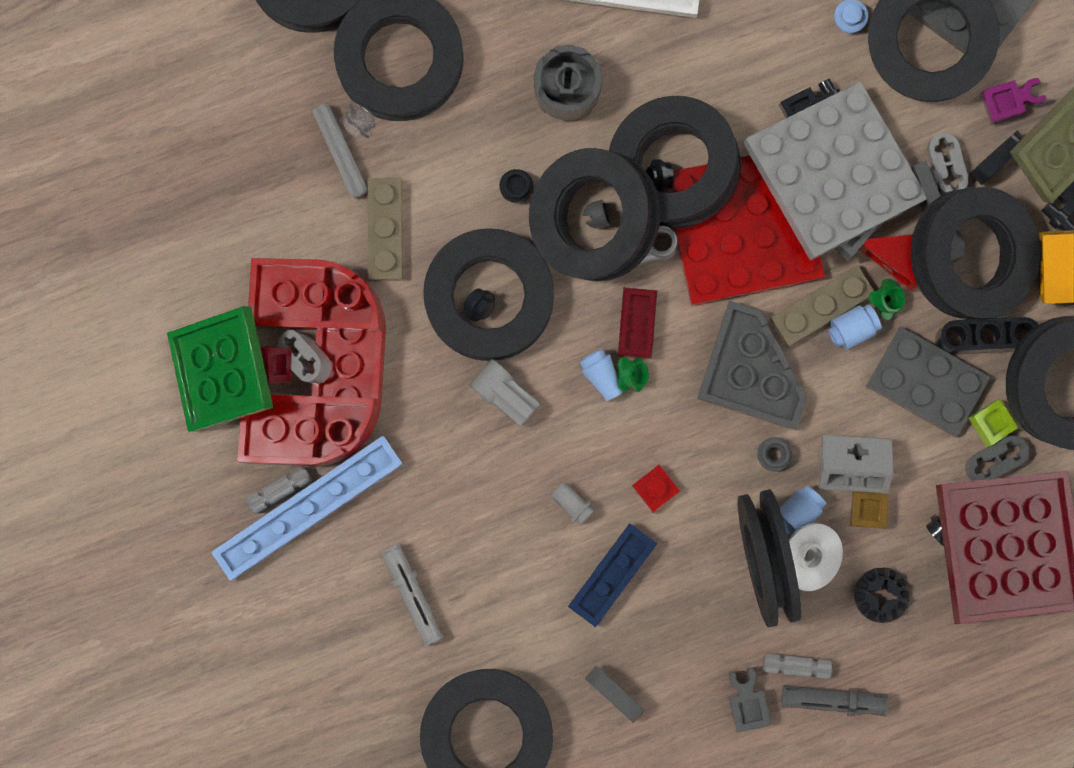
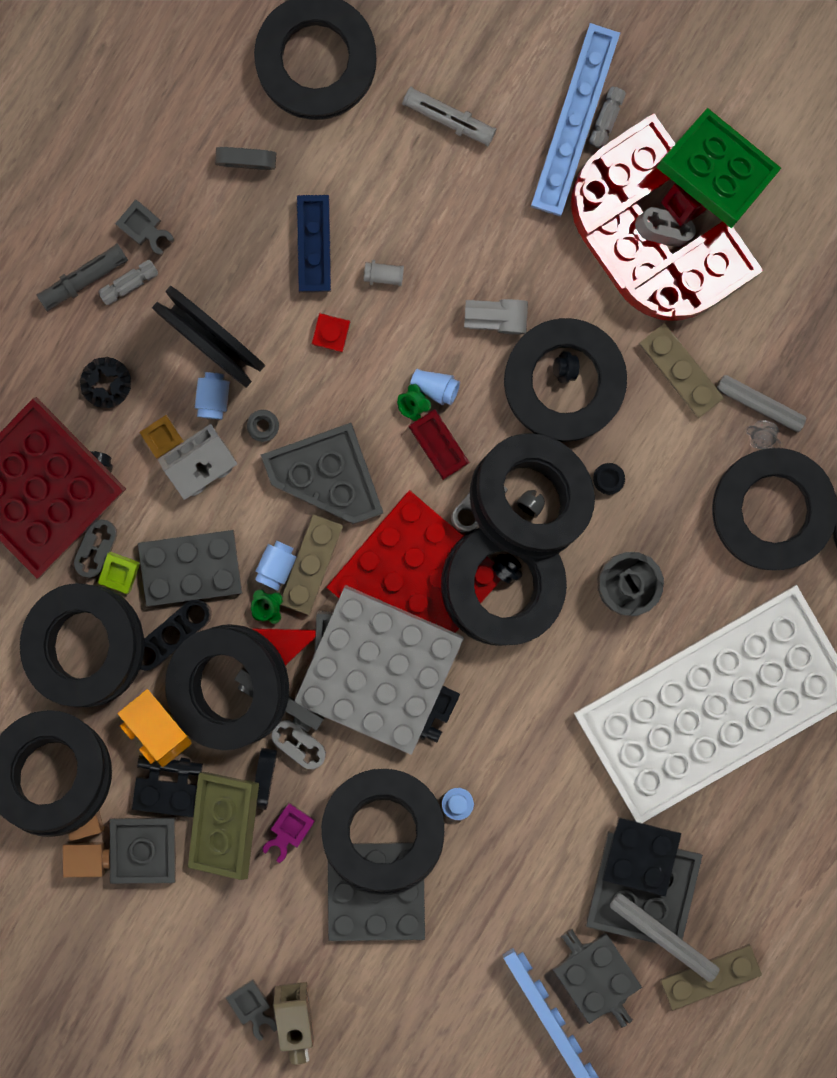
camera: 140 degrees right, 5 degrees up
(823, 555) = (168, 369): white dish -> none

